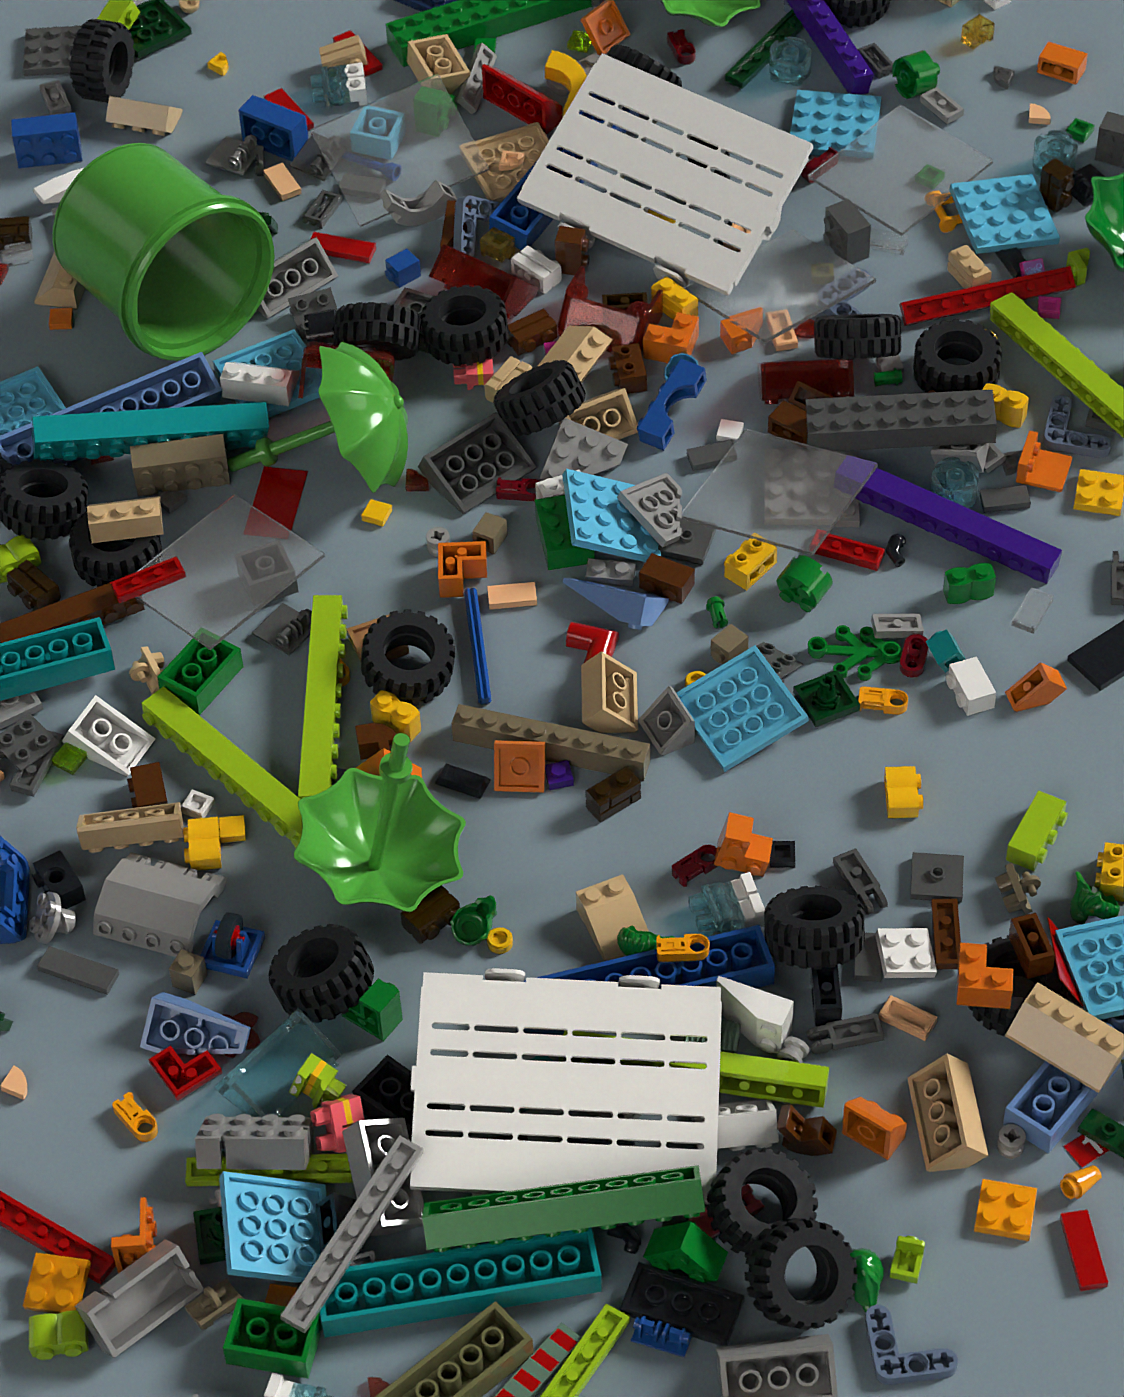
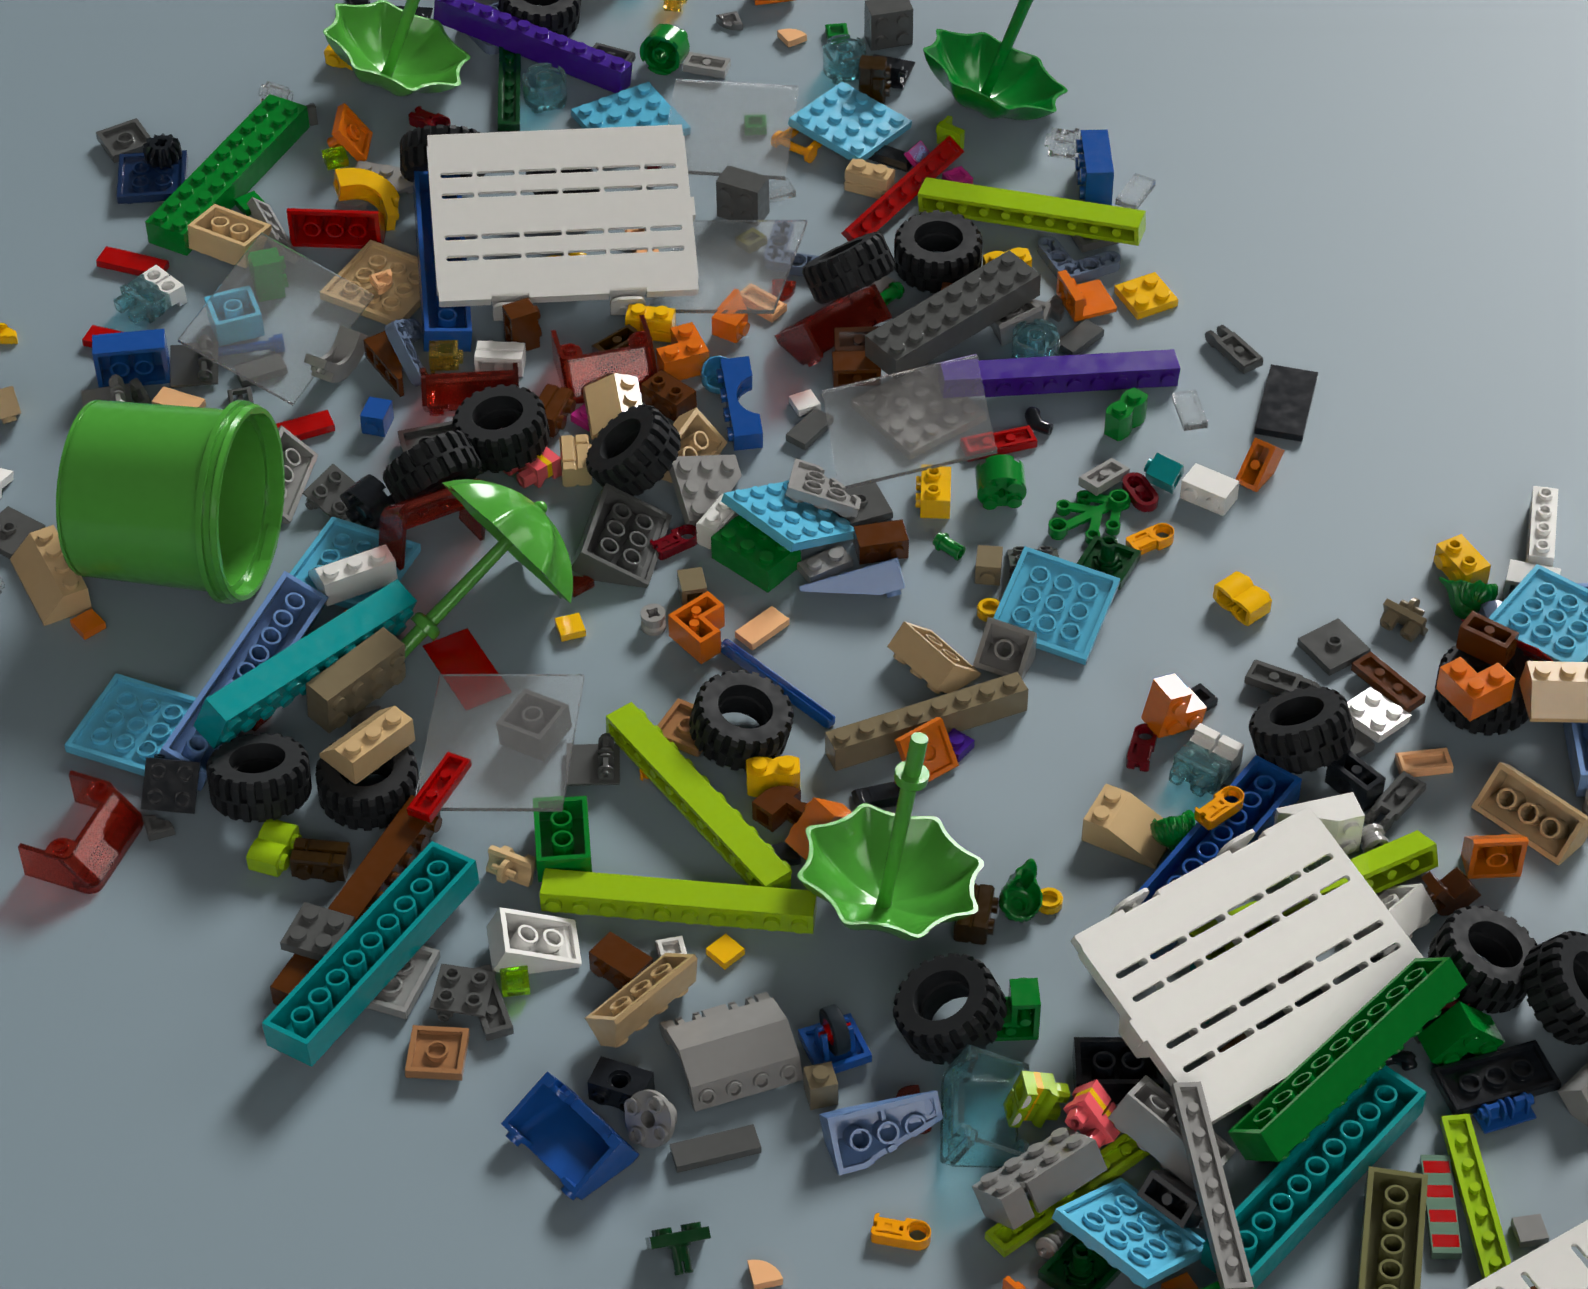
camera: 40 degrees left, 5 degrees down
(187, 1077) = (907, 1173): red brick -> none
(204, 843) = (720, 977): yellow brick -> none
(343, 52) = (127, 266): tan brick -> none
(591, 639) = (873, 622): red brick -> none
(613, 794) = (1022, 731): dark brown brick -> none
(1037, 831) = (1372, 567): lime brick -> none

